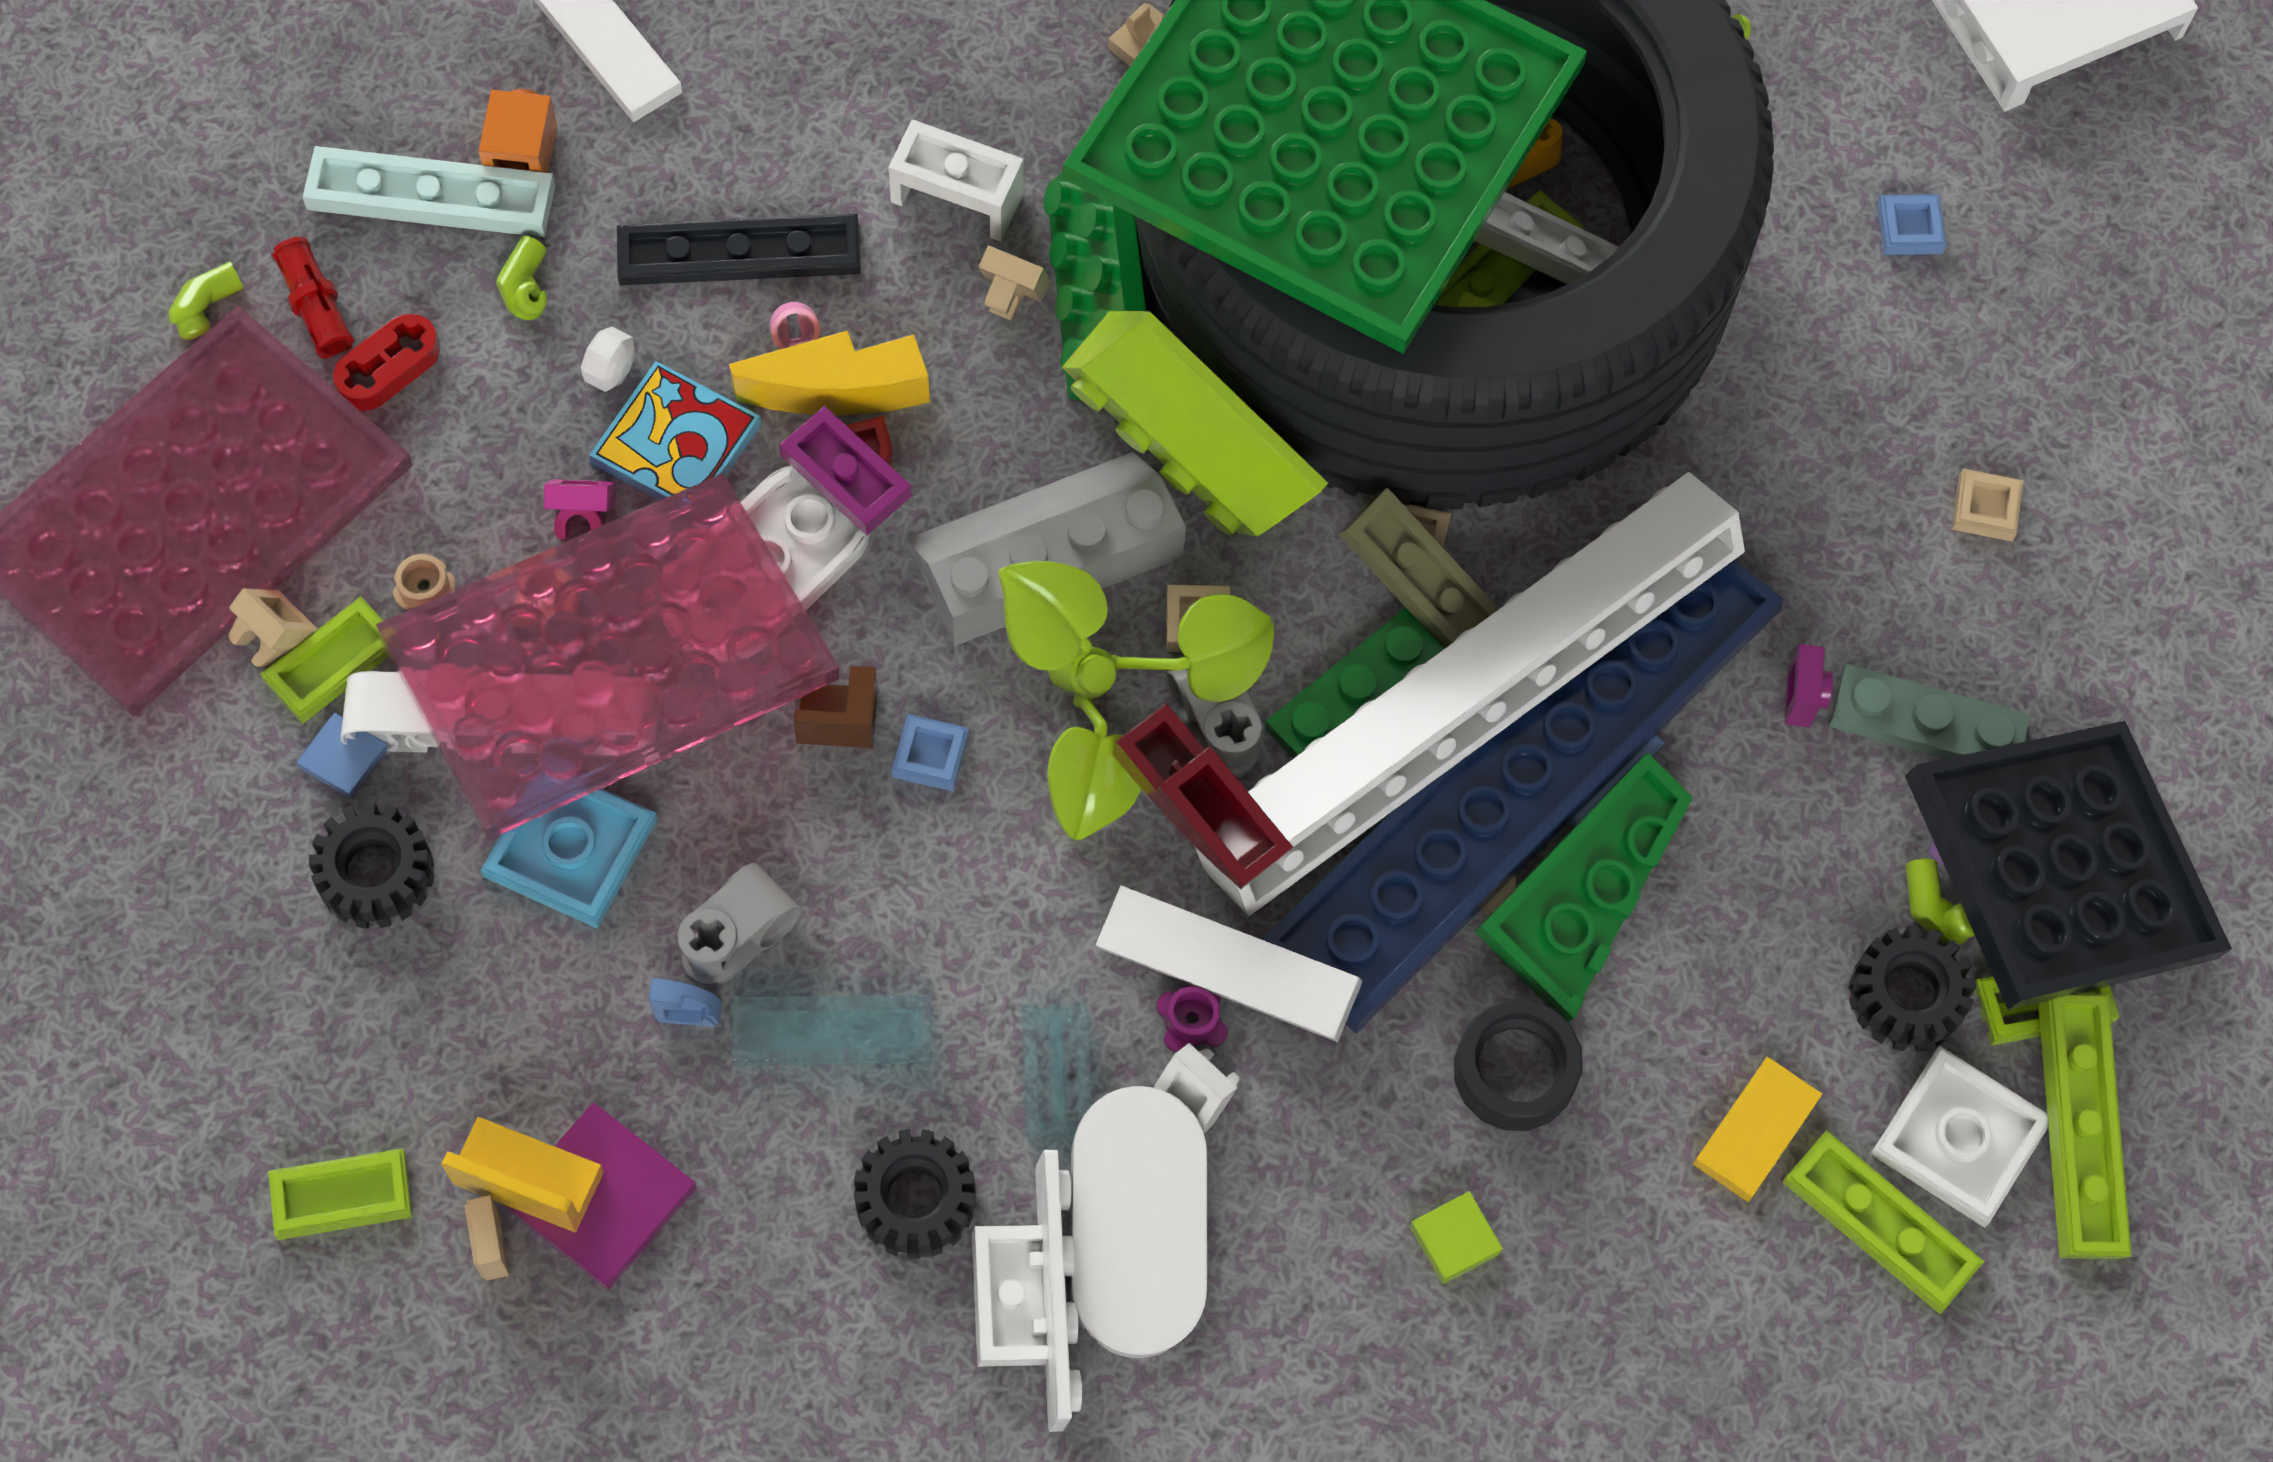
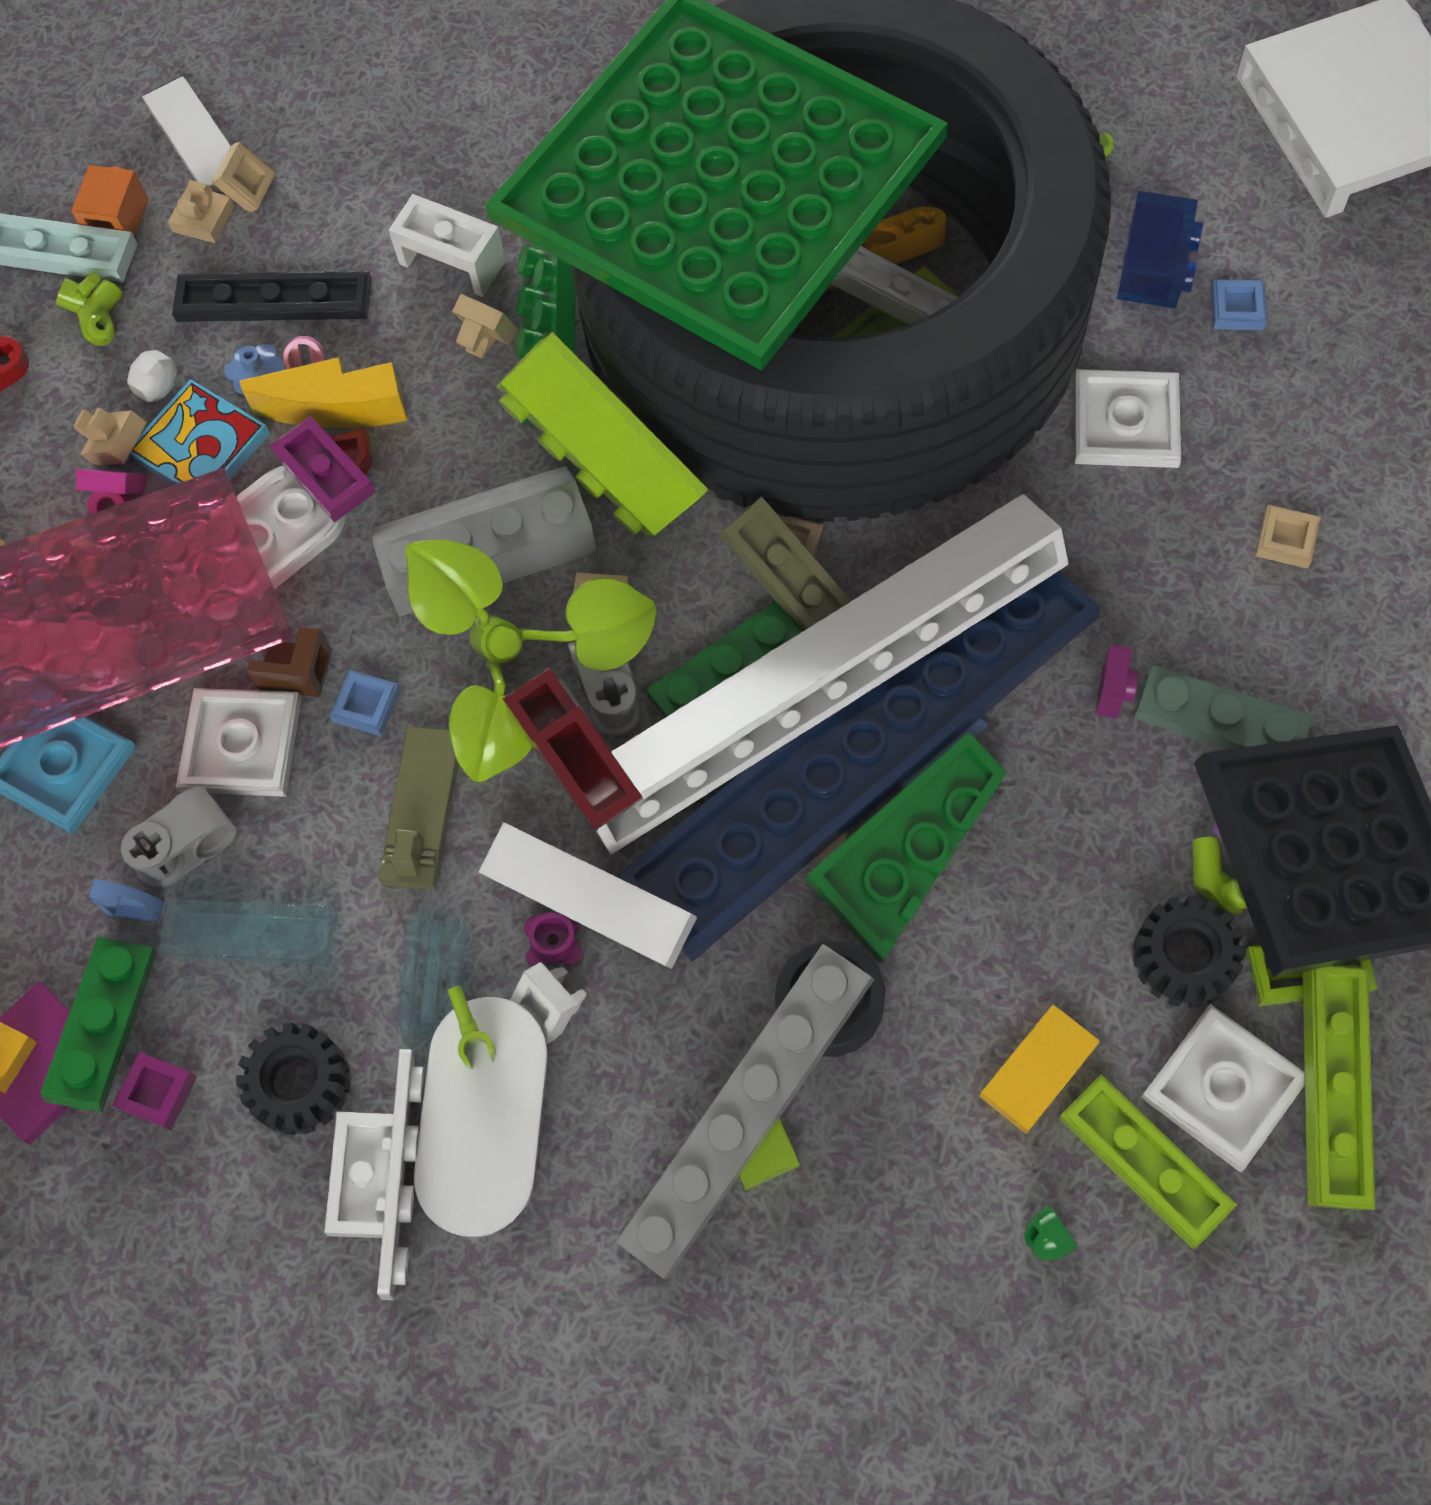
camera: 15 degrees right, 0 degrees up
(490, 256) = (74, 294): none -> lime hand
(568, 438) = (109, 435): none -> tan tile
(631, 143) = (201, 212): none -> tan tile
(677, 1146) = (98, 1025): none -> green plate
(683, 96) = (244, 177): none -> tan tile
(728, 341) = (251, 363): none -> medium blue plant
(753, 1218) = (154, 1091): none -> magenta plate
(785, 806) = (239, 741): none -> white tile
(1015, 874) = (419, 810): none -> olive hinge
(1121, 1122) = (468, 1026): none -> lime hand
(1440, 1194) = (744, 1112): none -> light grey plate
(1784, 1308) = (1048, 1236): none -> green hinge
(1792, 369) = (1127, 418): none -> white tile
(1815, 161) = (1158, 250): none -> clear blue brick

